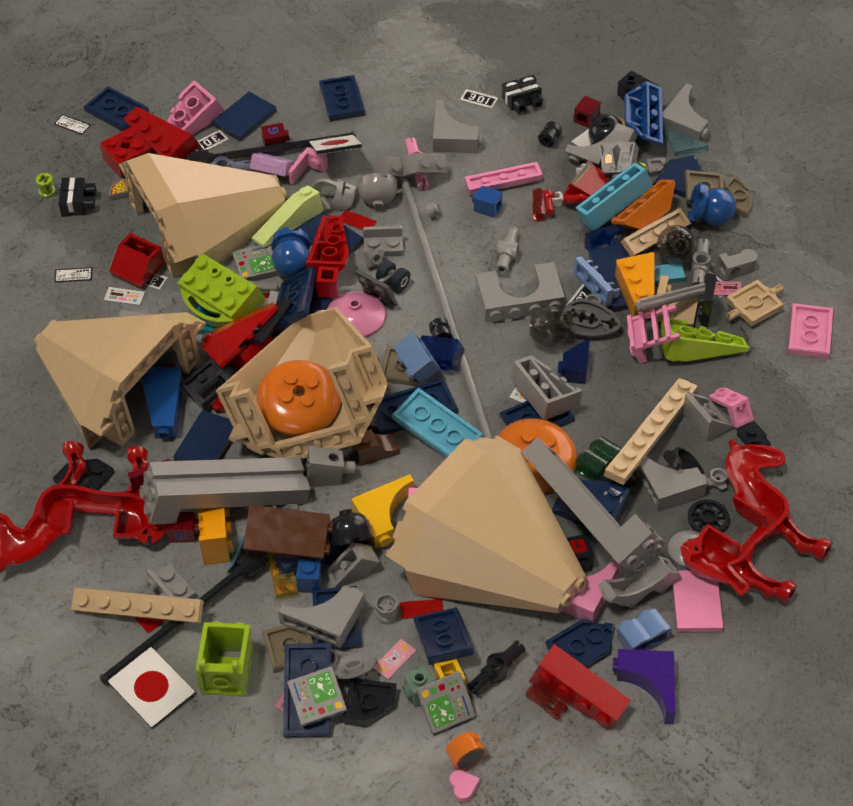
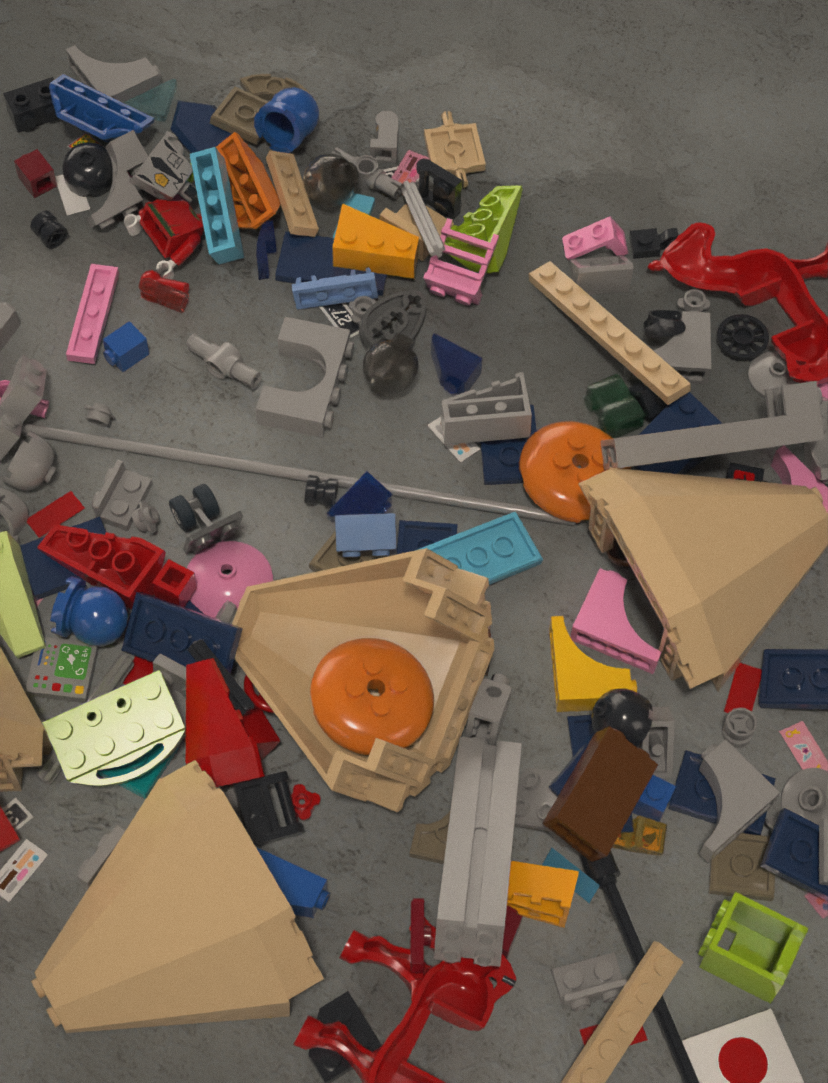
camera: 70 degrees left, 10 degrees up
(205, 439) = (358, 849): dark blue tile -> none
(810, 331) = (520, 119): bright pink tile -> none

